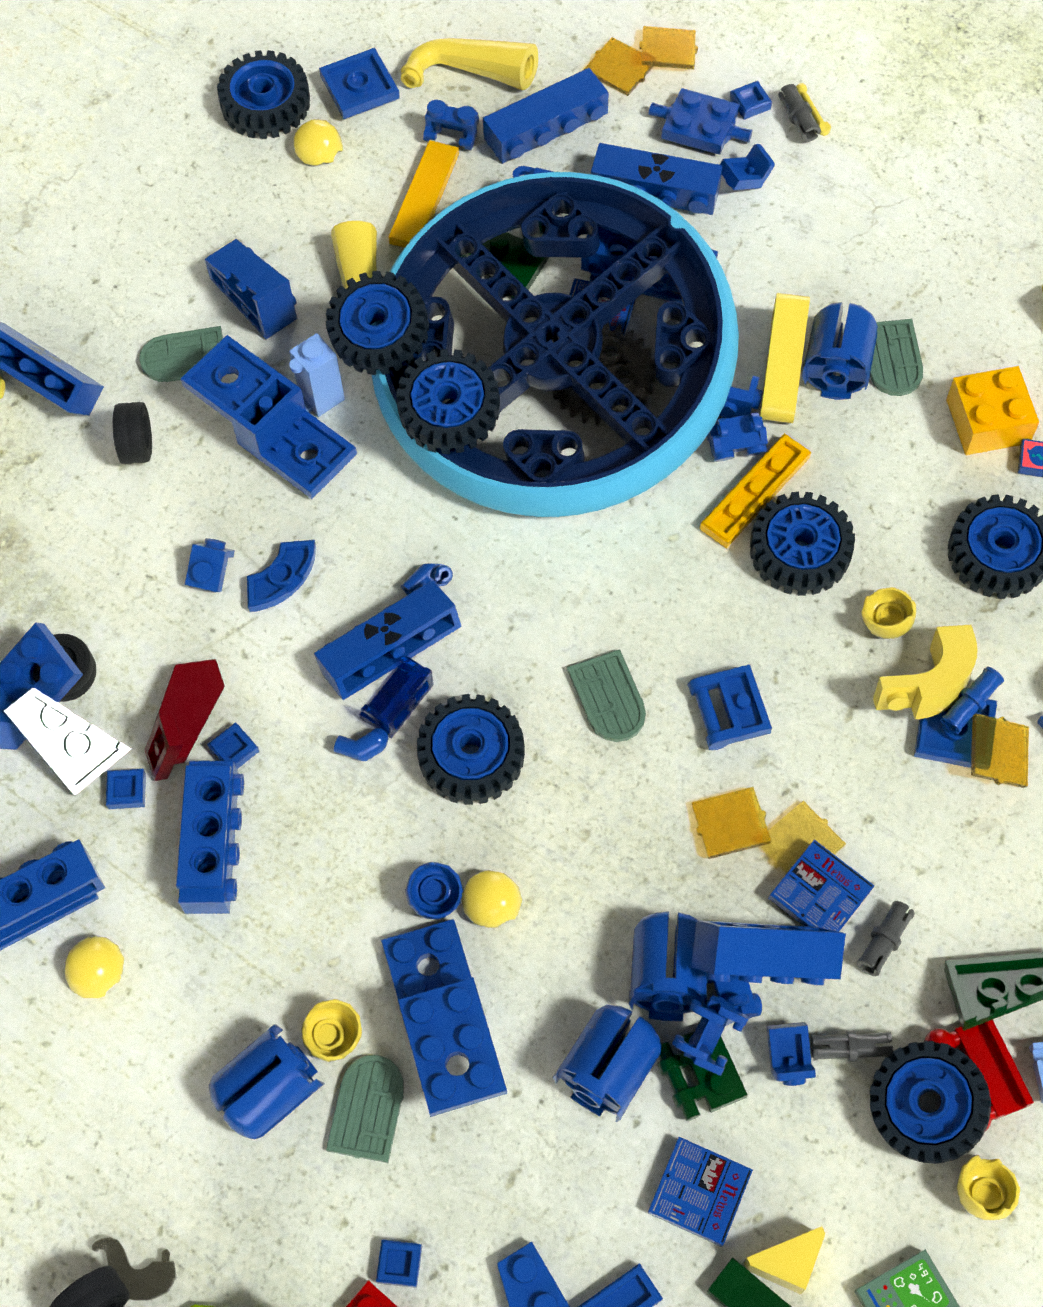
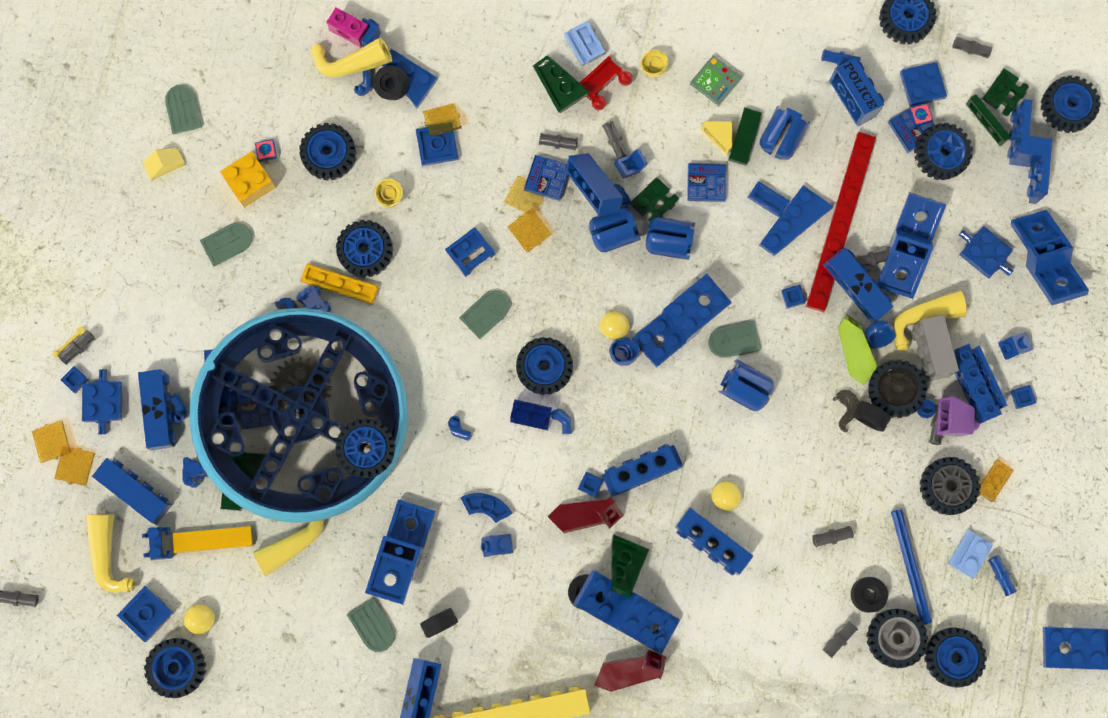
camera: 115 degrees left, 15 degrees up
(125, 789) = (633, 527): blue tile -> none
(253, 287) = (316, 606): blue wedge -> none
(317, 375) = (366, 536): light blue brick -> none
(331, 1030) = (709, 368): light yellow hair -> none
(372, 300) = (328, 522): wheel -> none
(385, 638) = (503, 431): blue brick -> none
(708, 1032) = (634, 196): blue piece -> none
(748, 171) = (130, 360): blue bracket -> none
(784, 357) = (255, 293): light yellow beam -> none
(844, 353) = (241, 275): blue cylinder -> none
(934, 1135) = (642, 95): wheel -> none
(939, 689) = (410, 151): light yellow arch -> none
(972, 700) = (423, 138): blue pin -> none

